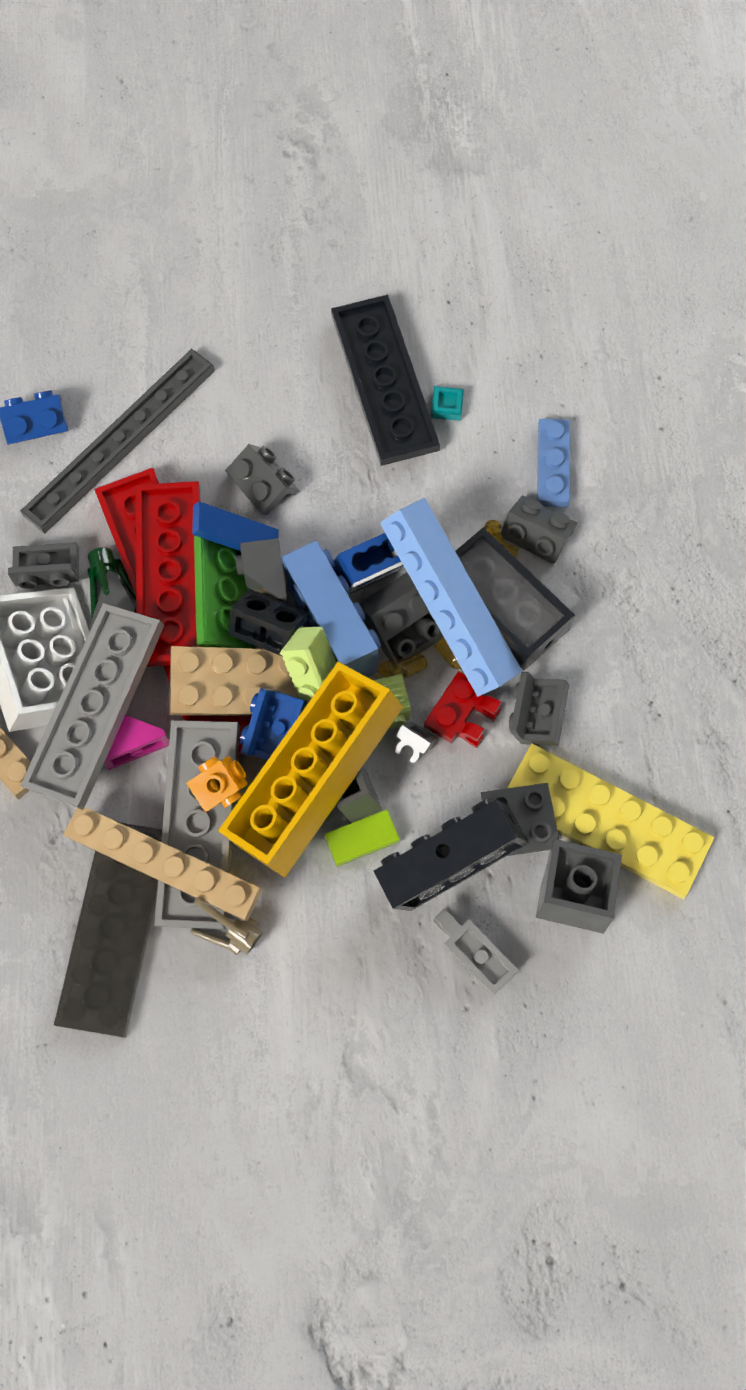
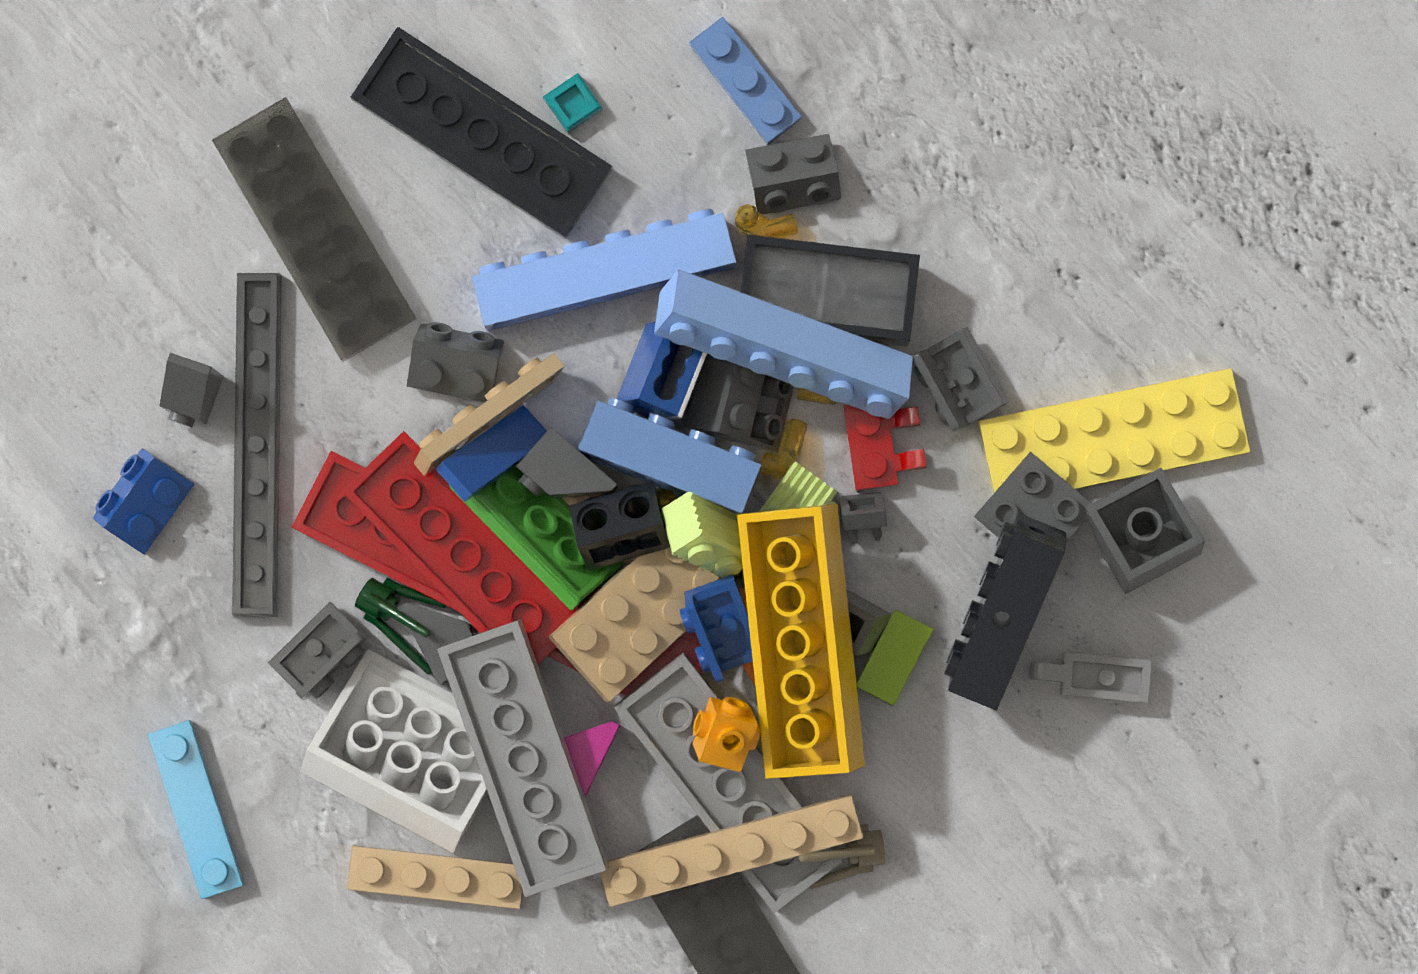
camera: 40 degrees left, 15 degrees up
(109, 377) = (189, 390): none -> dark grey slope
(251, 359) = (314, 229): none -> clear smoke plate
(265, 510) = (501, 402): none -> tan plate
(378, 489) = (602, 271): none -> light blue brick

